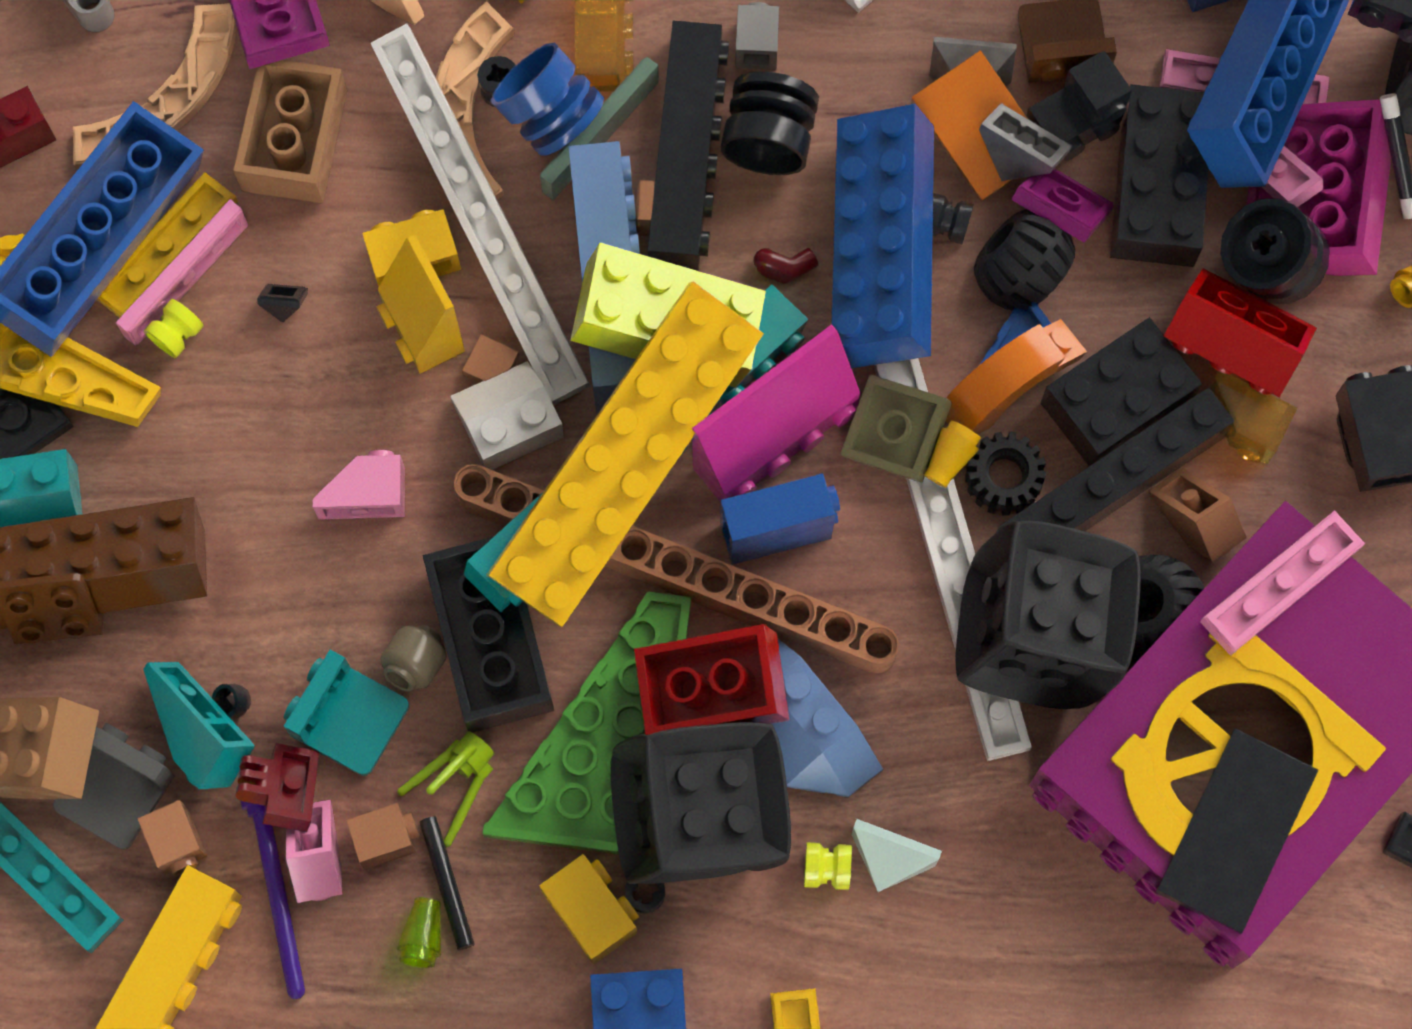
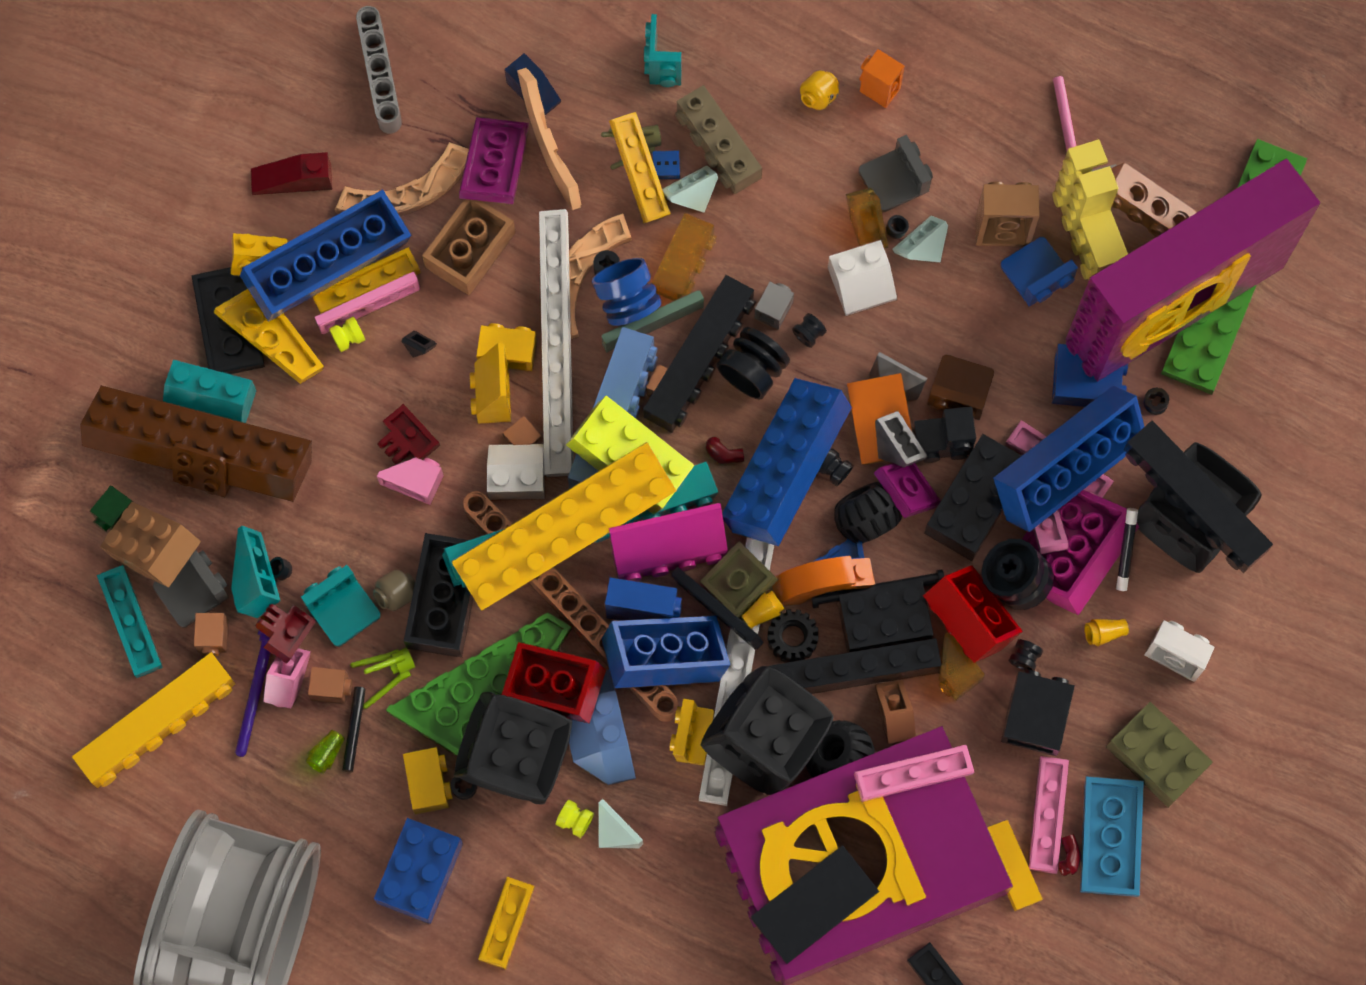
camera: 25 degrees right, 0 degrees up
(327, 433) = (407, 436): none -> dark red hinge
(821, 50) = (809, 330): none -> black wheel
(846, 570) = (665, 651): none -> blue brick
(886, 480) = (717, 608): none -> black tile
(935, 664) = (692, 726): none -> yellow bracket
(1161, 308) = (830, 597): none -> black bar
(1334, 359) = (1025, 655): none -> black wheel

